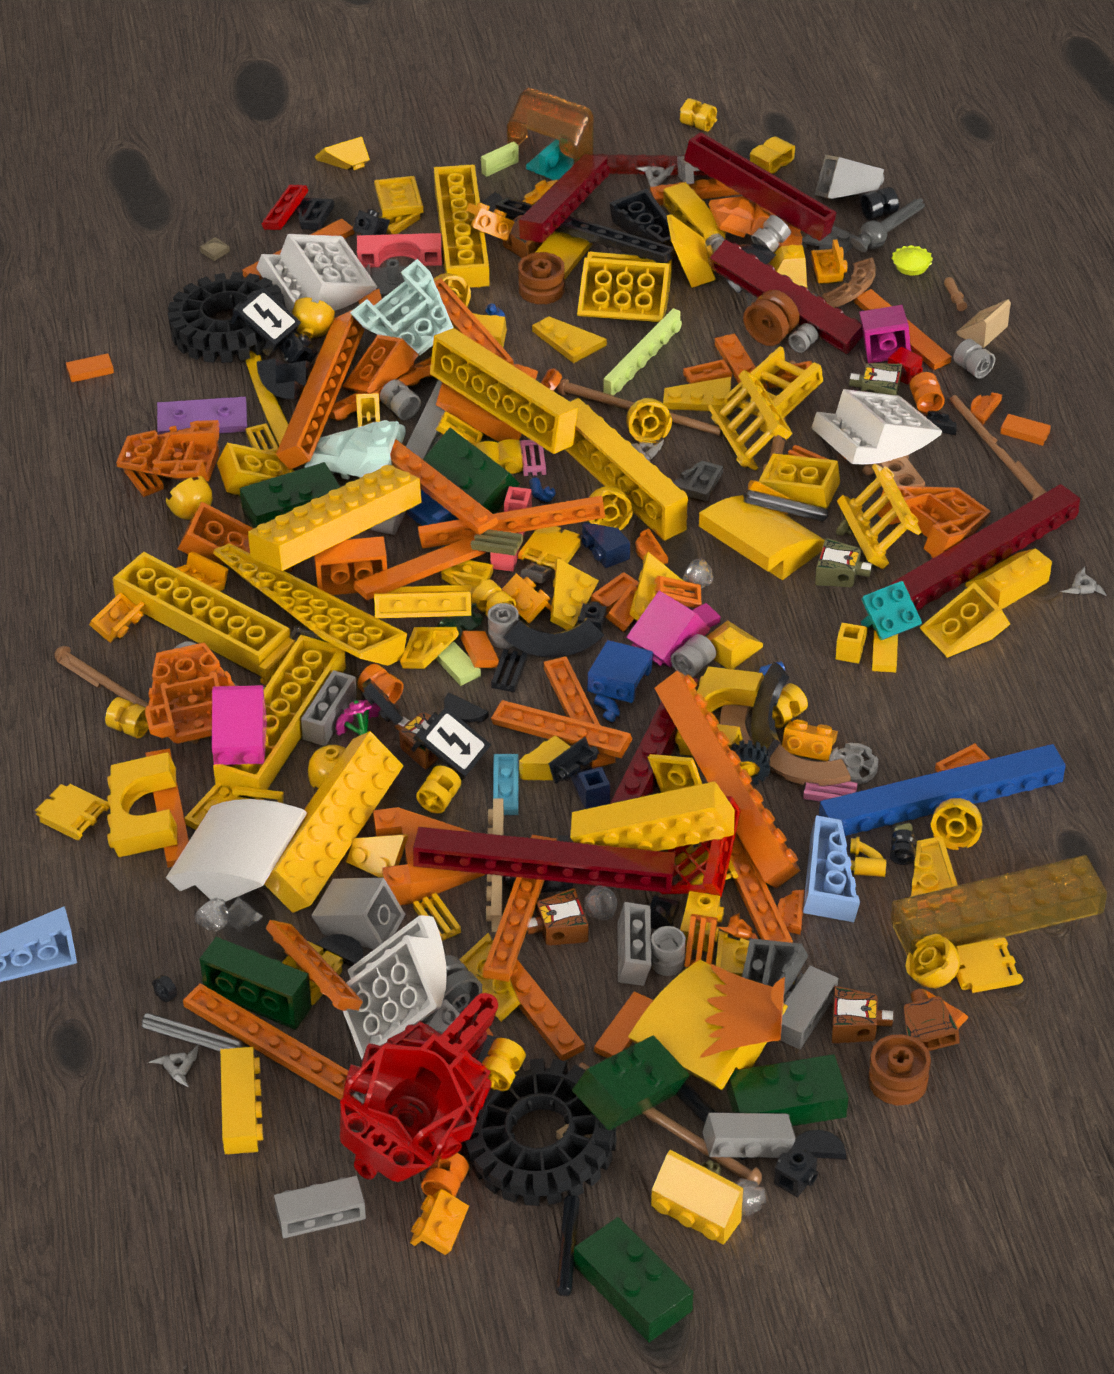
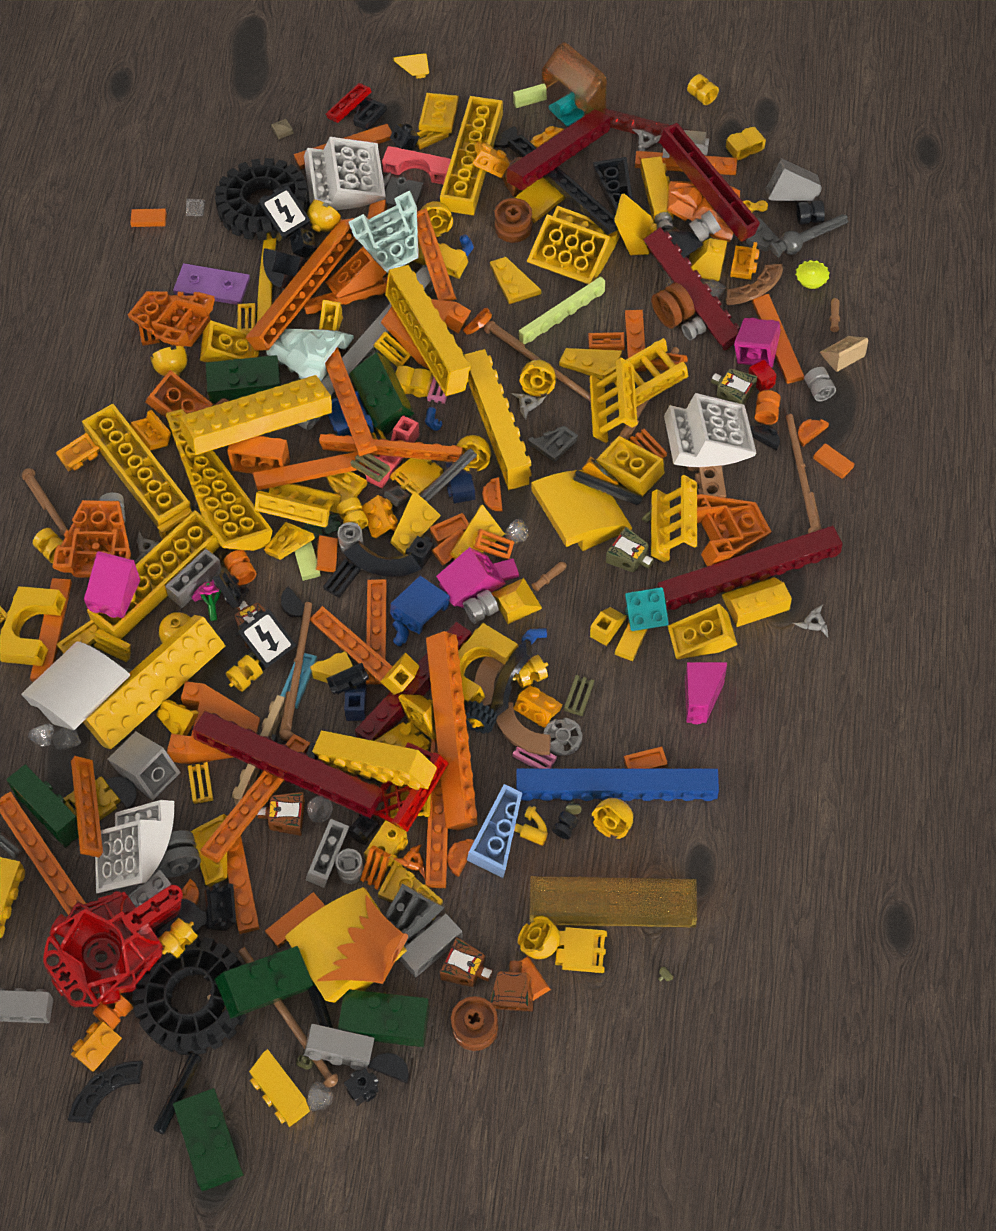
camera: 20 degrees right, 15 degrees up
(144, 345) = (195, 207): none -> clear slope
(400, 399) = (360, 308): light grey wheel -> none
(468, 1263) = (100, 1086): none -> black tile
(508, 795) = (290, 700): none -> medium nougat bar
(529, 1031) = (220, 907): none -> black hinge
(594, 530) = (448, 475): none -> dark grey axle
(639, 735) = (400, 674): none -> yellow slope
(754, 614) = (545, 578): none -> medium nougat piece
(851, 704) = (583, 681): none -> olive tile
(932, 867) = (579, 854): yellow wing -> none
(993, 672) = (702, 689): none -> dark pink slope
(1094, 965) = (665, 974): none -> olive rock

